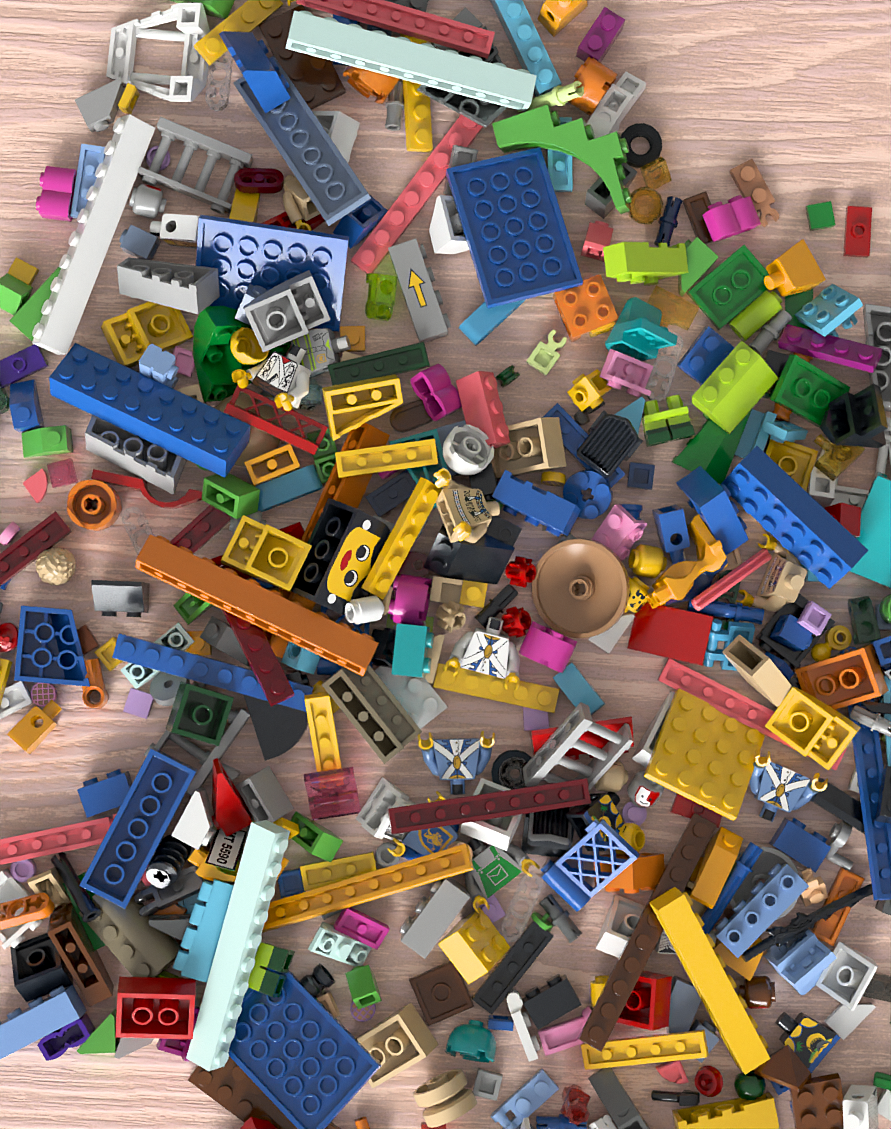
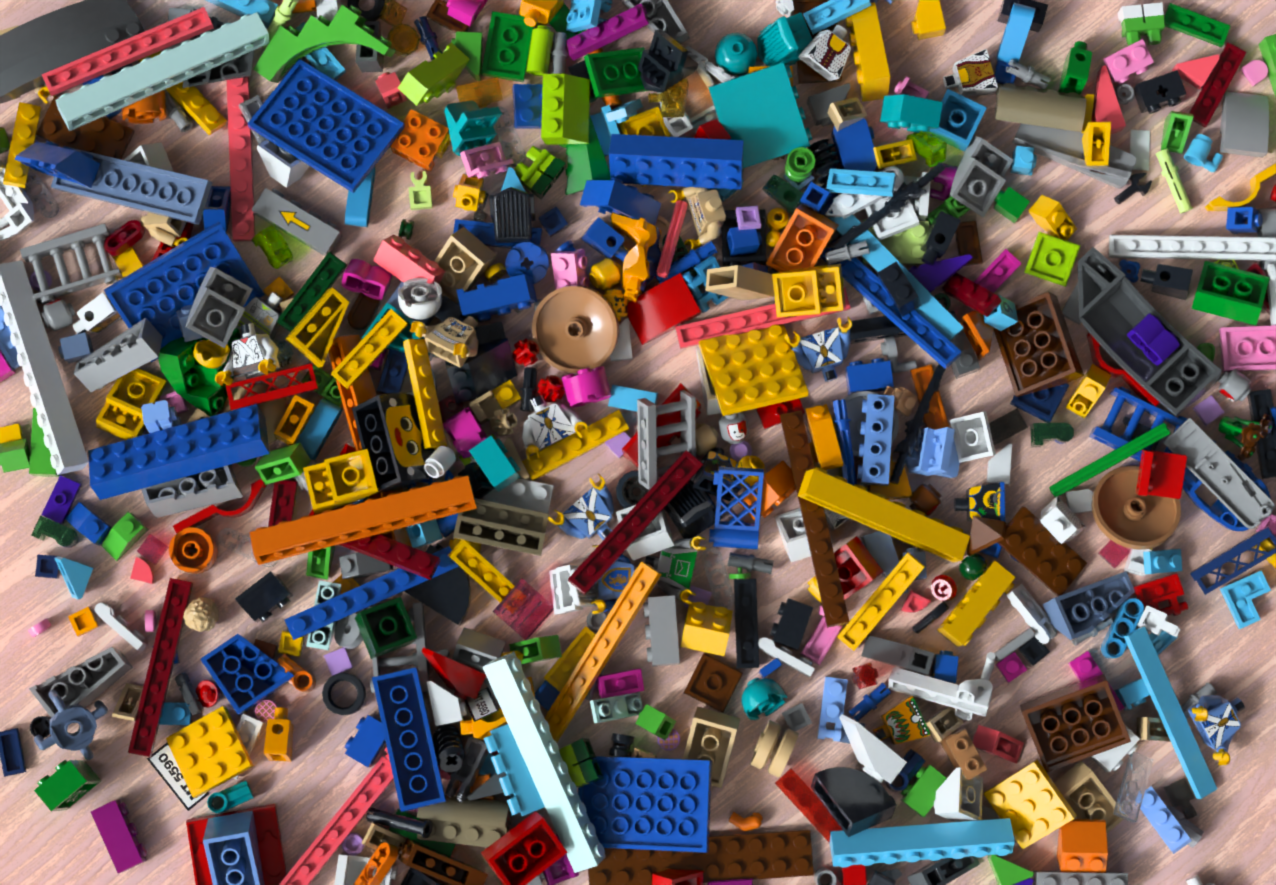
camera: 45 degrees left, 5 degrees down
(105, 747) = (326, 694): none -> black tyre

